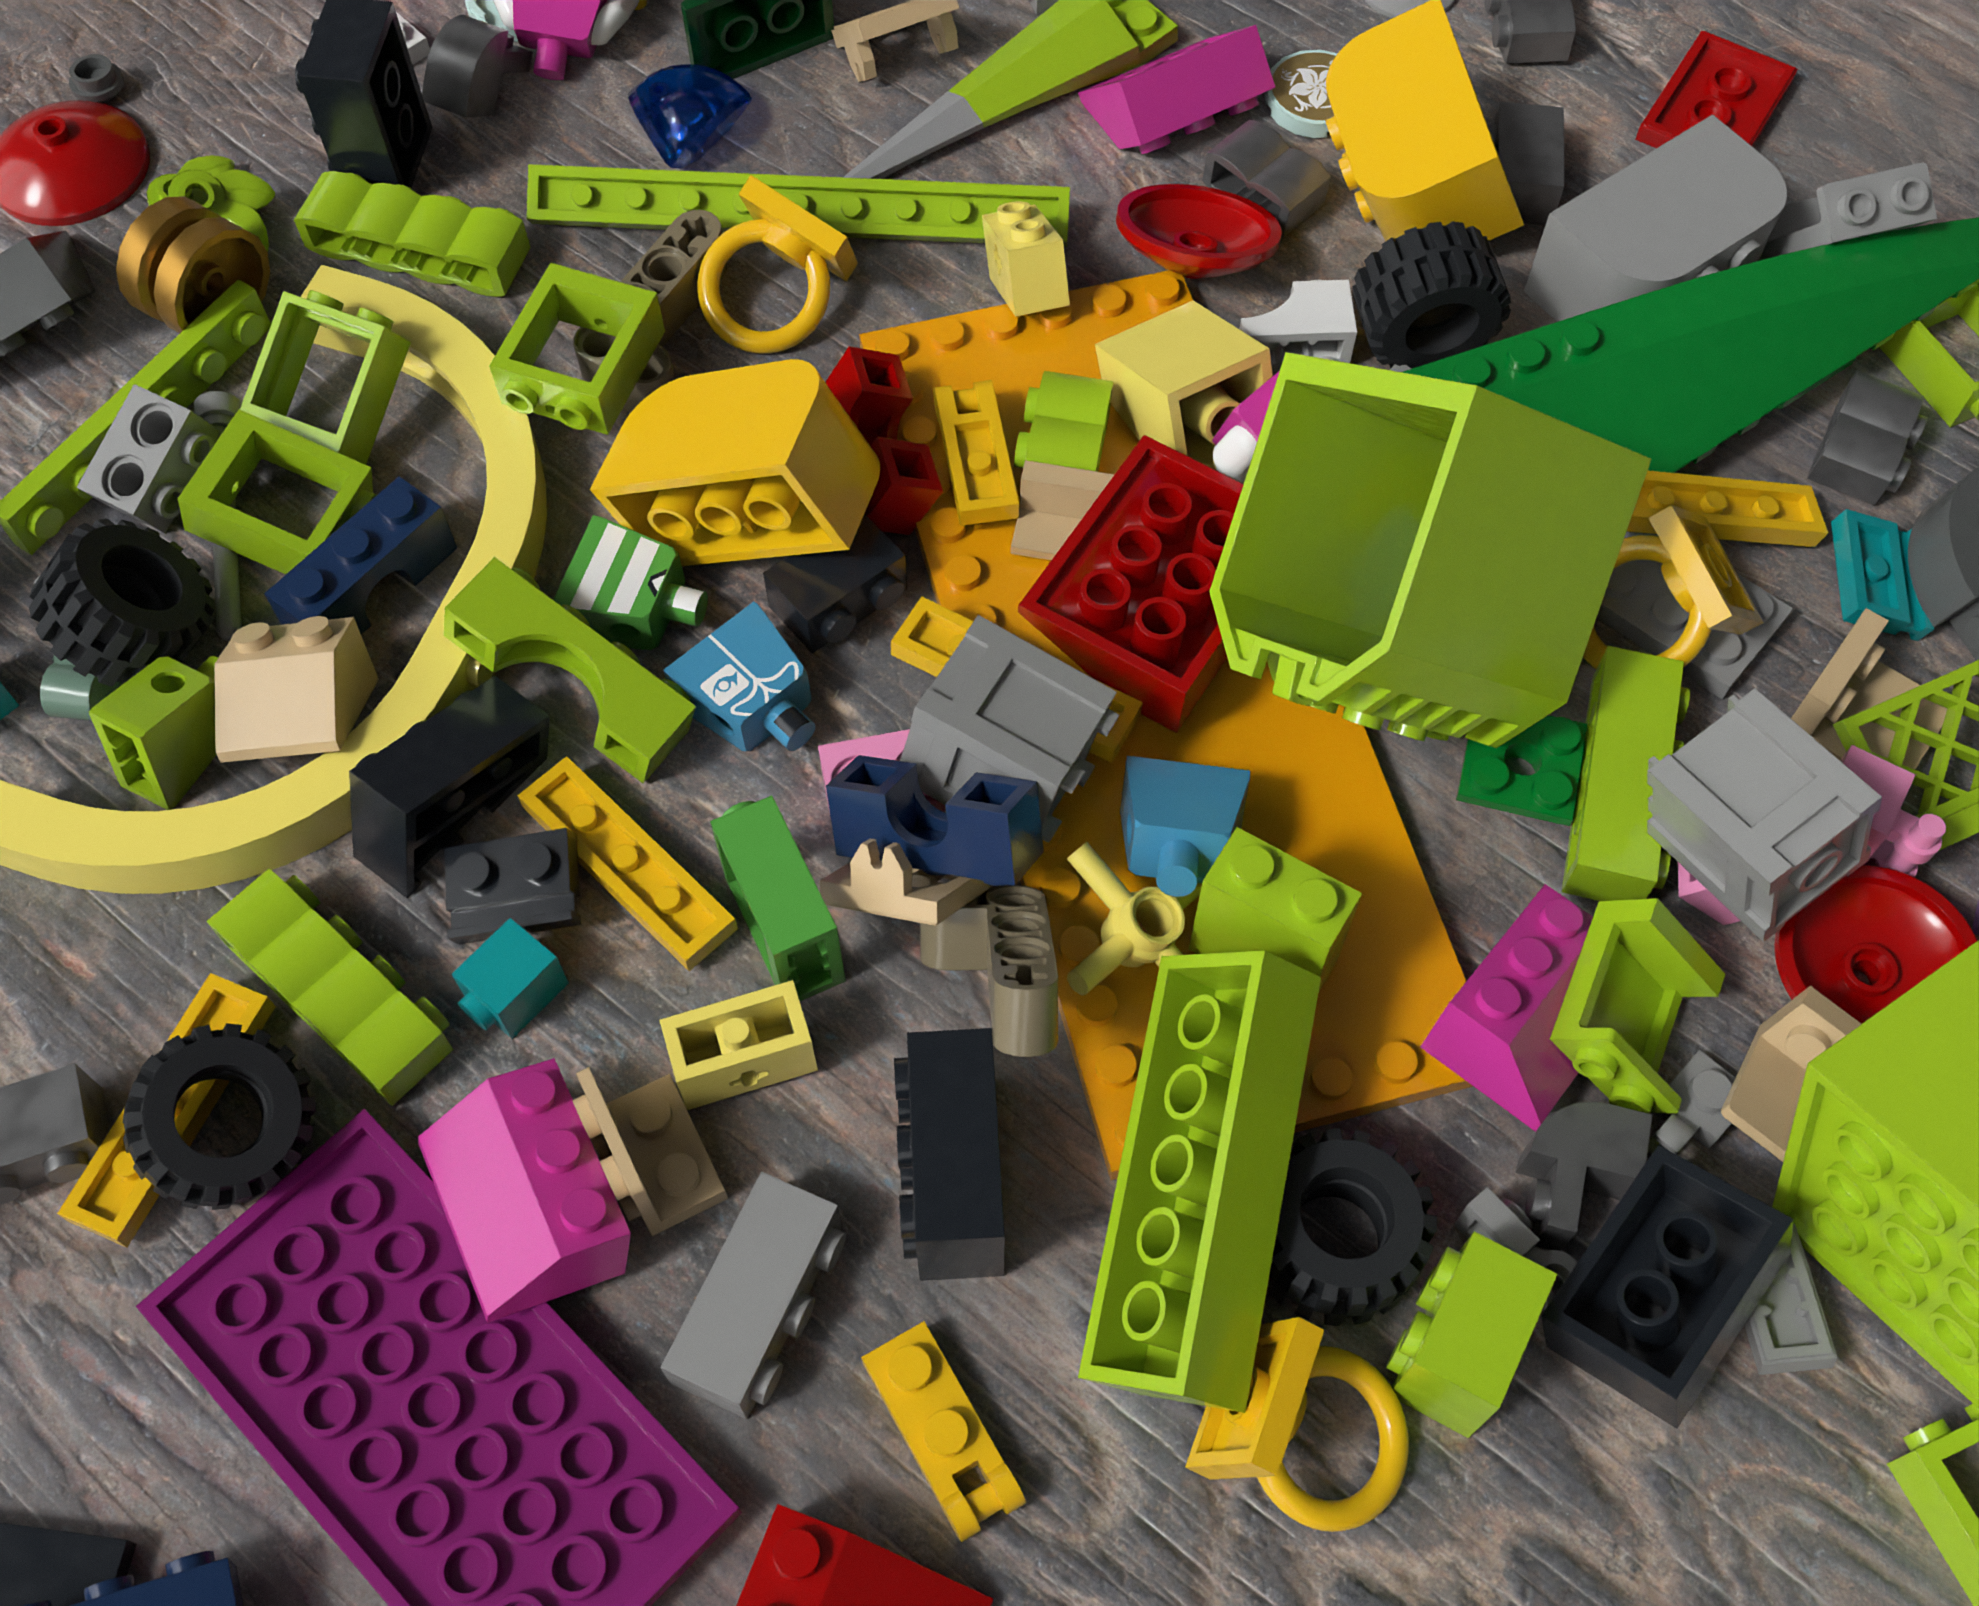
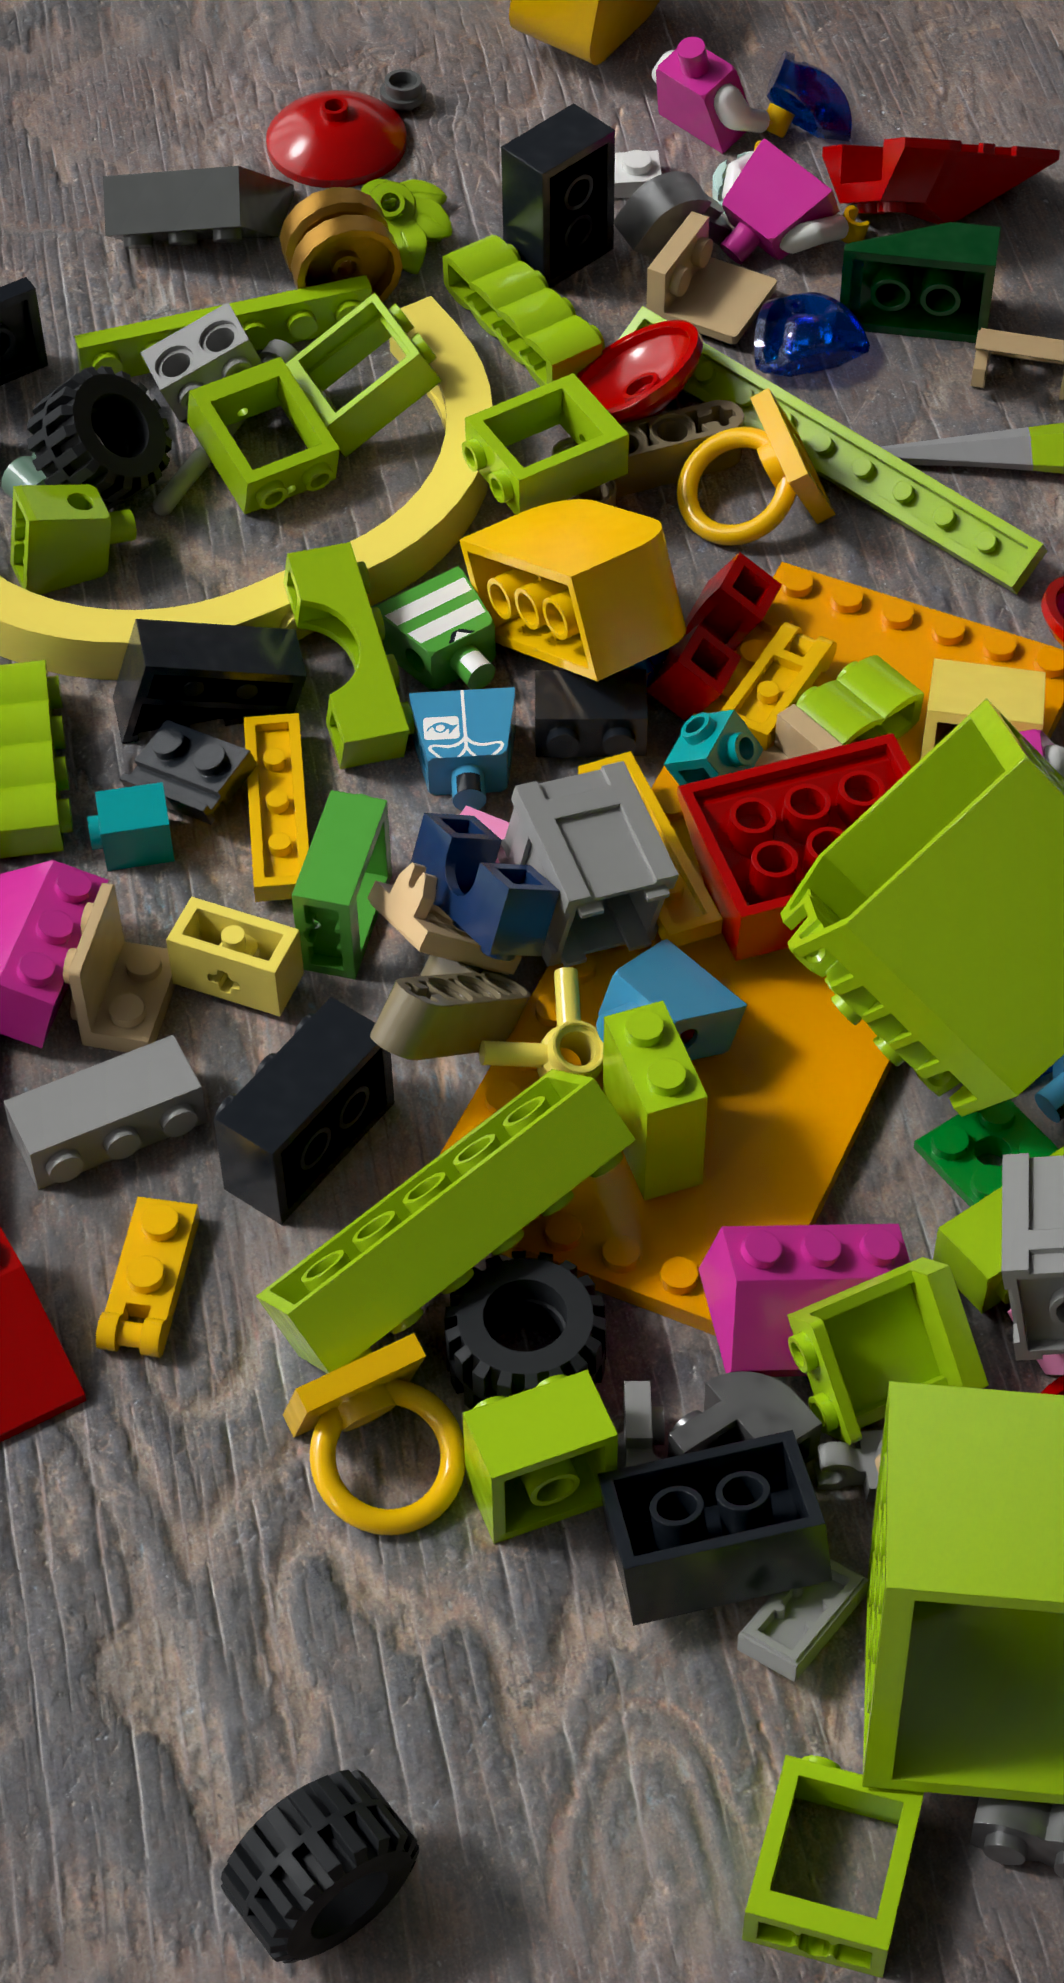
camera: 40 degrees right, 10 degrees down
(290, 688) = (158, 556): tan slope -> none
(391, 533) = (240, 511): dark blue arch -> none
(563, 120) = (703, 290): none -> tan bracket
(588, 221) = (644, 369): none -> red dish
(996, 552) = (712, 747): none -> teal brick
(1025, 258) = (950, 573): light yellow brick -> none

